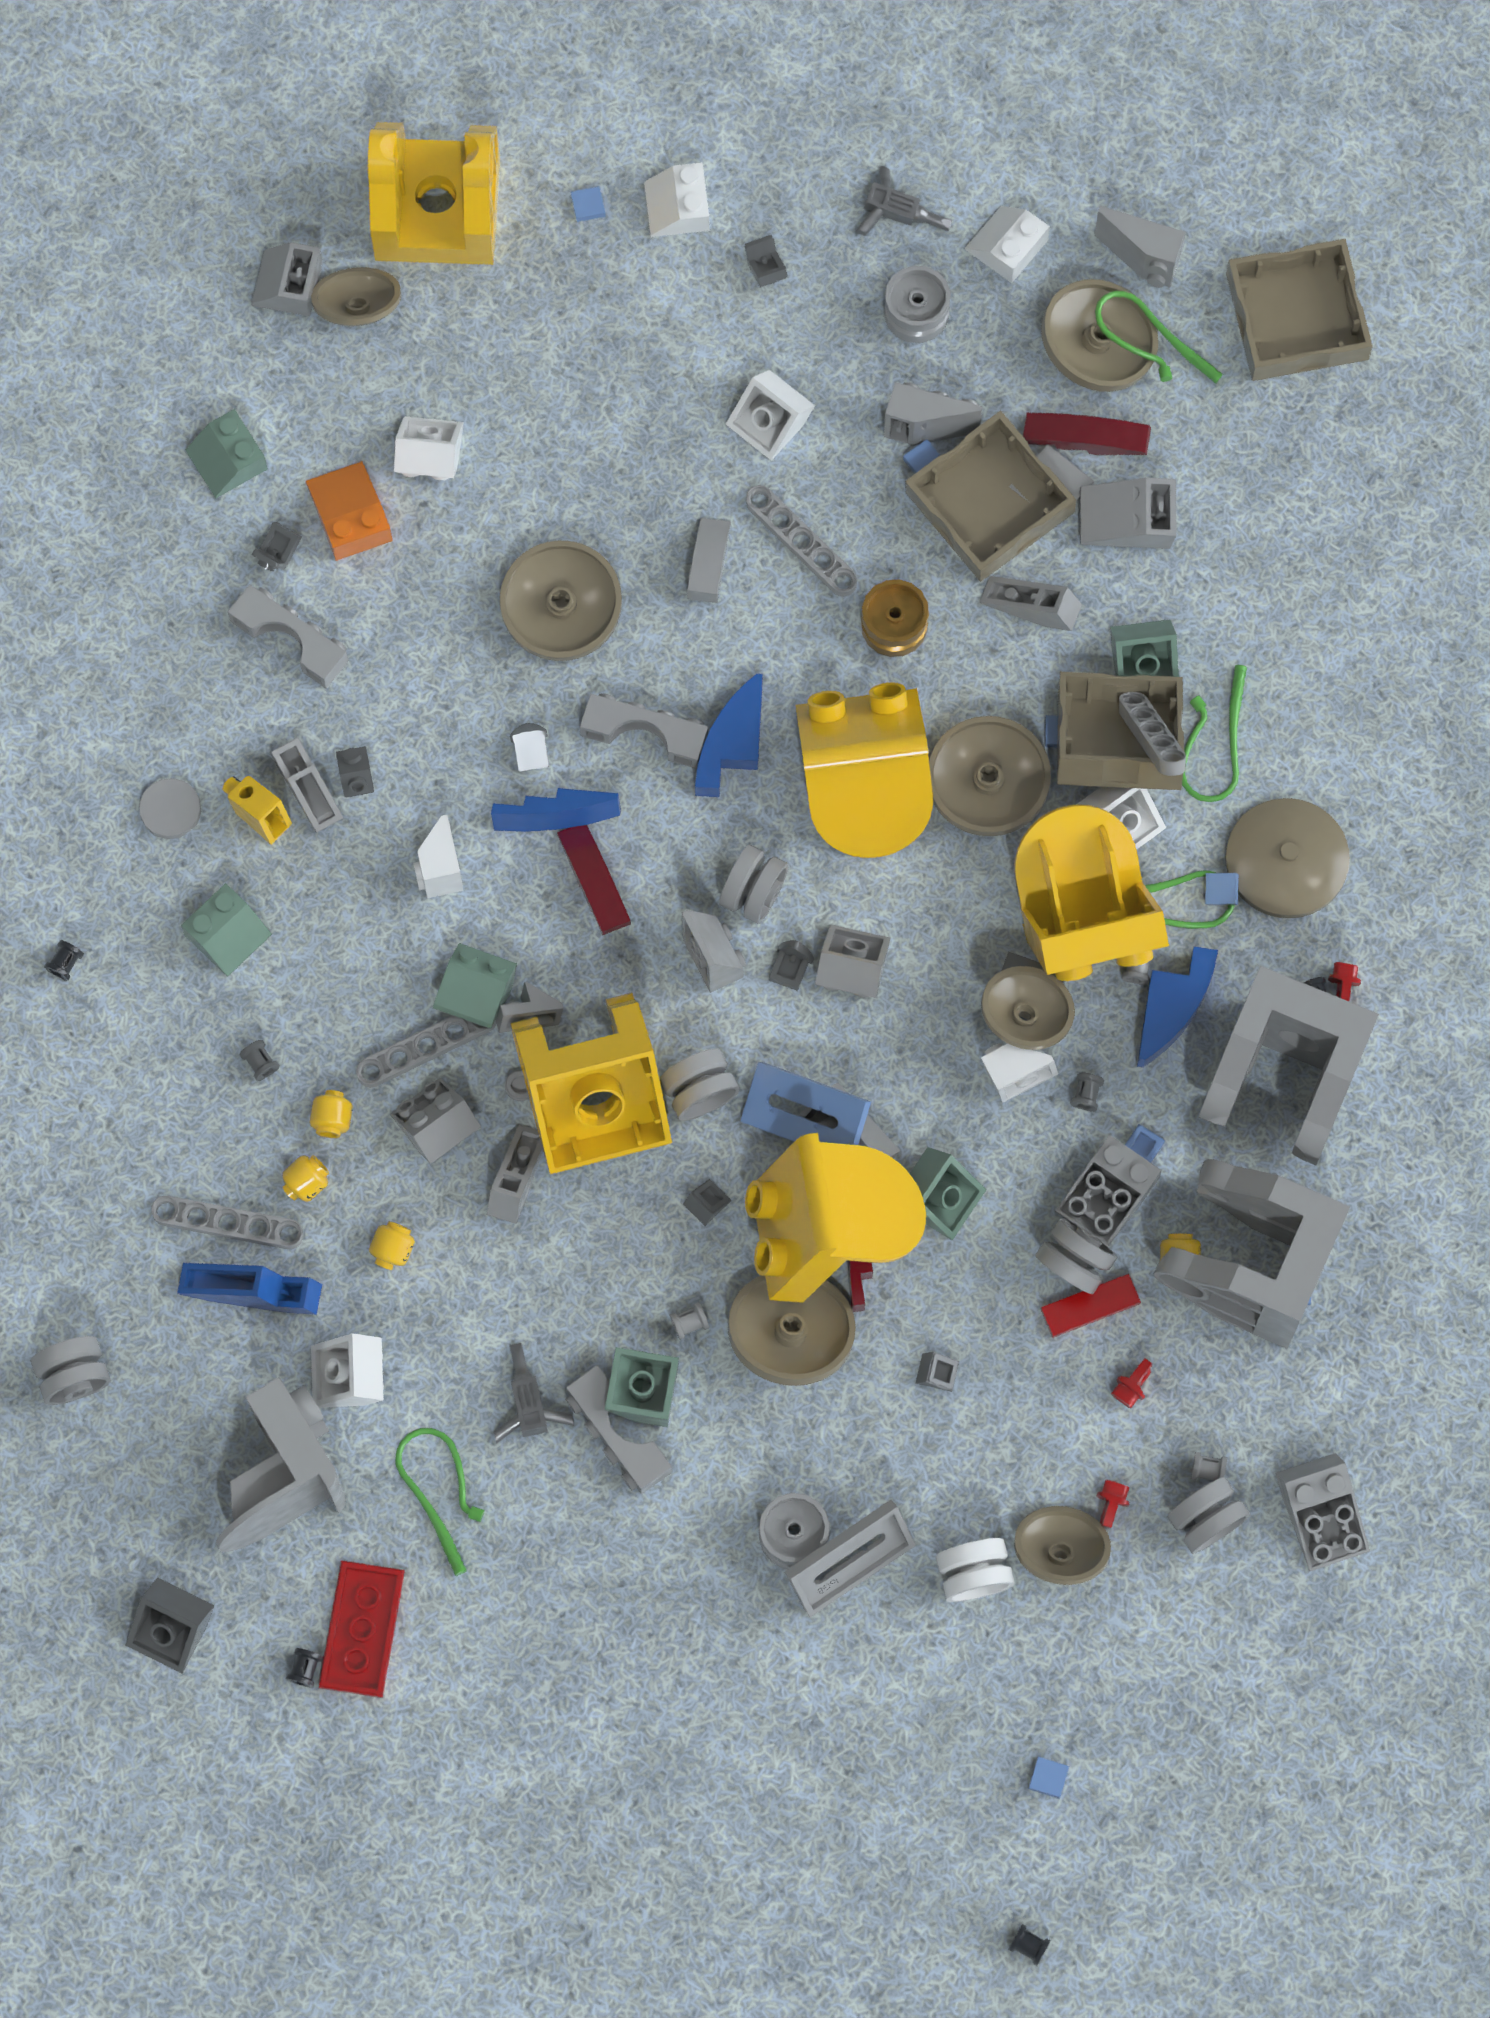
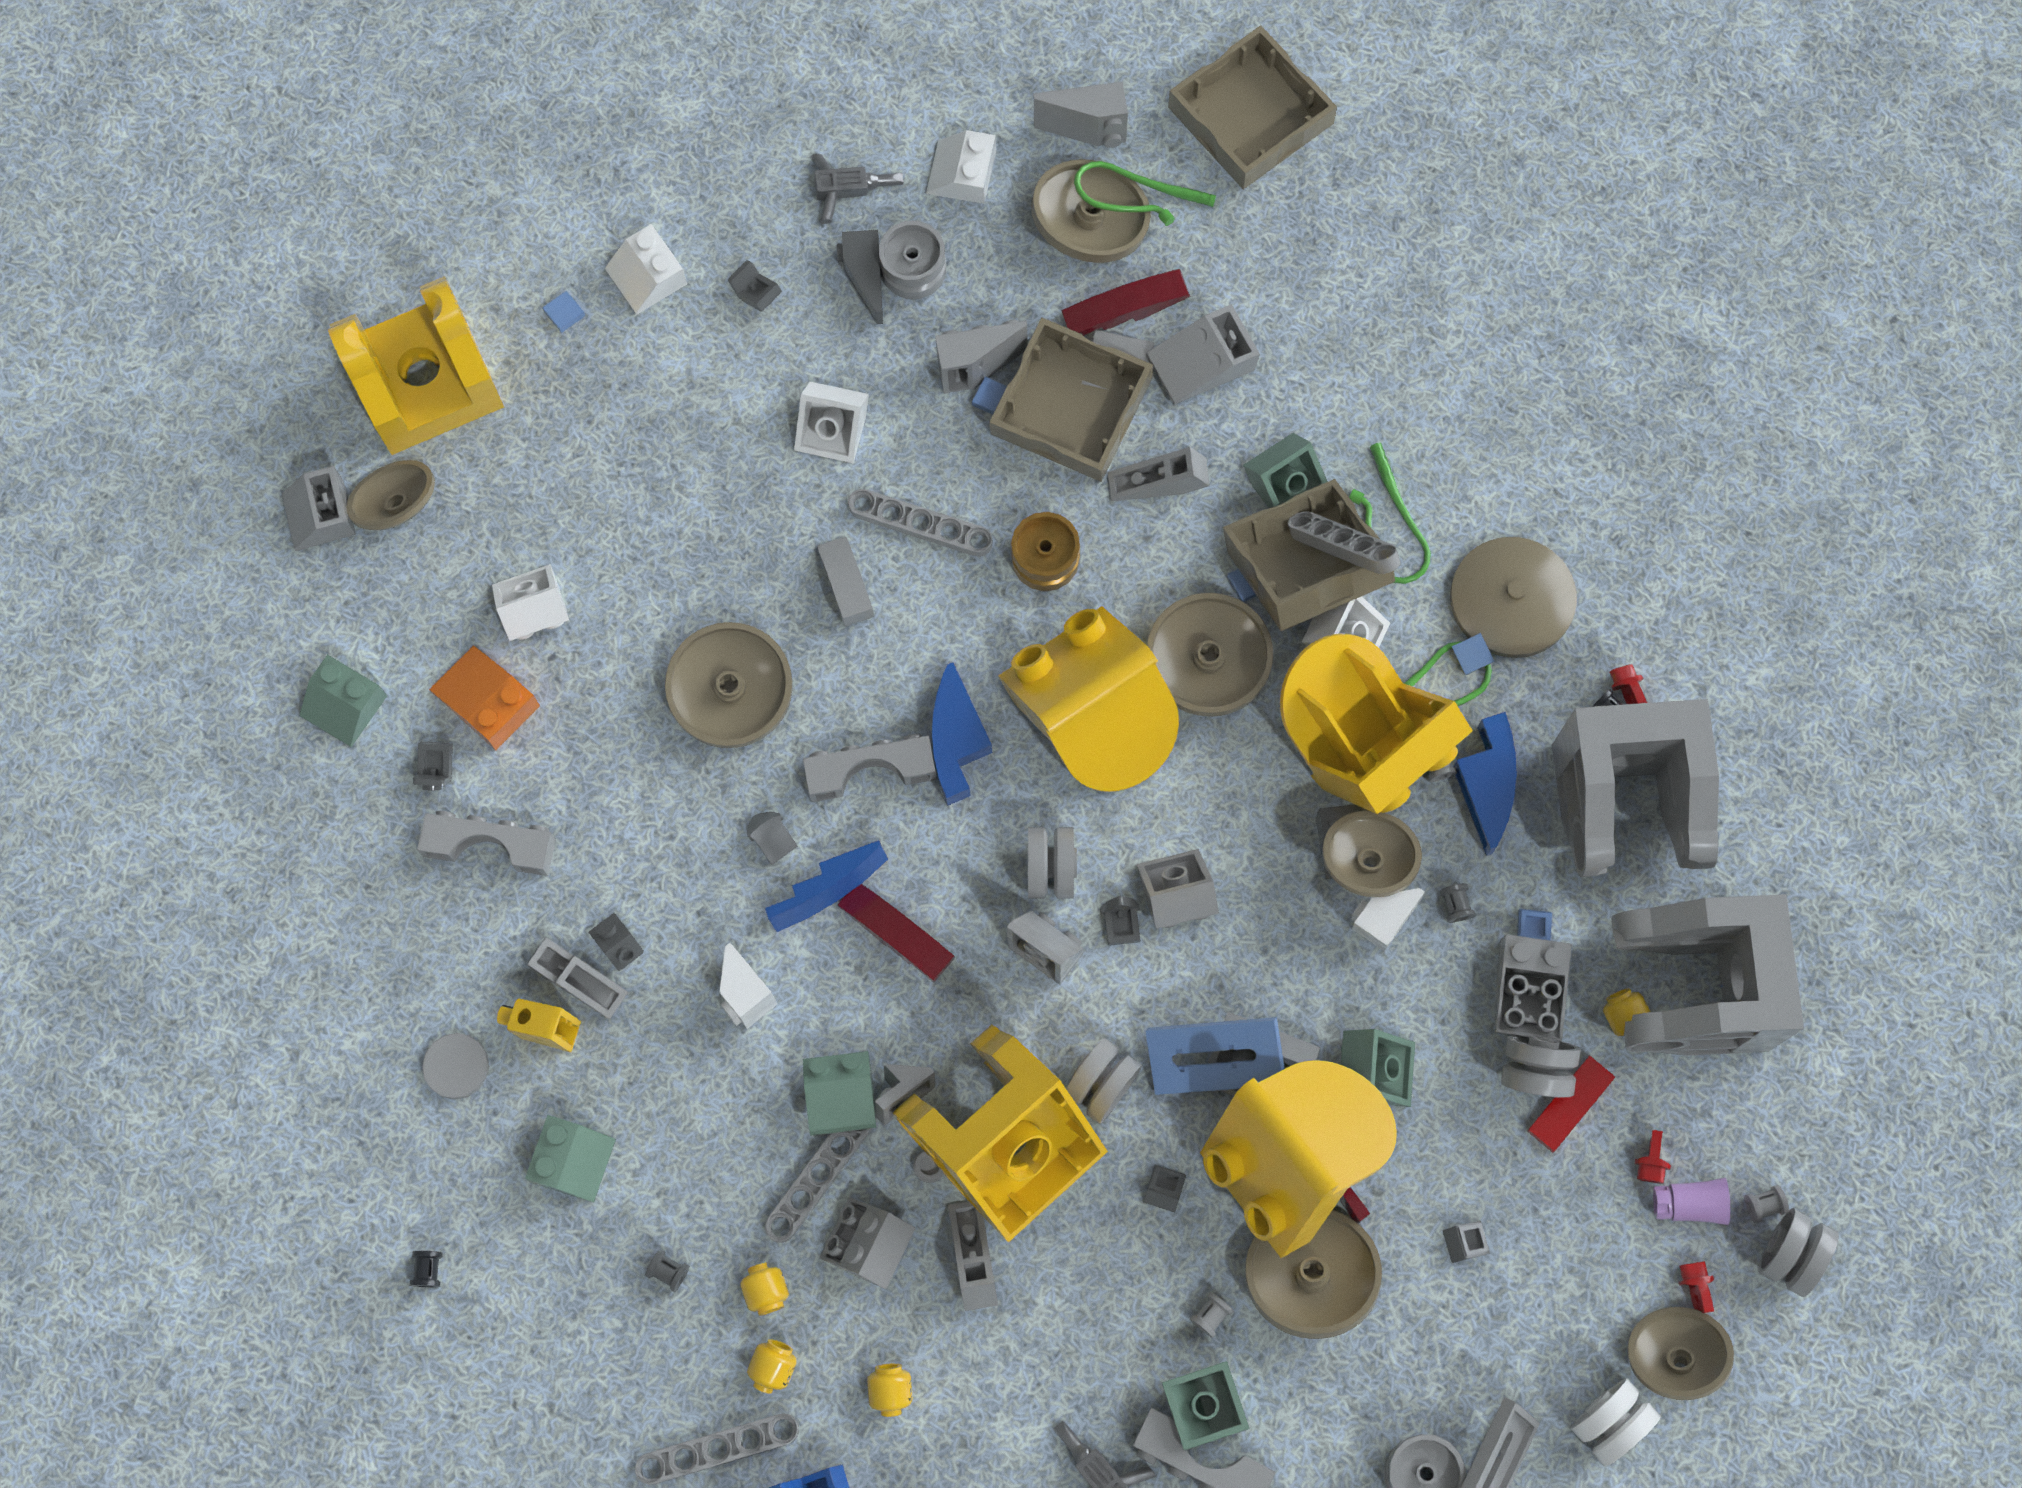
camera: 25 degrees left, 0 degrees up
(871, 280) = (862, 265): none -> dark grey slope
(1146, 1434) = (1693, 1202): none -> lavender plant
(1323, 1511) = (1890, 1188): light grey slope -> none

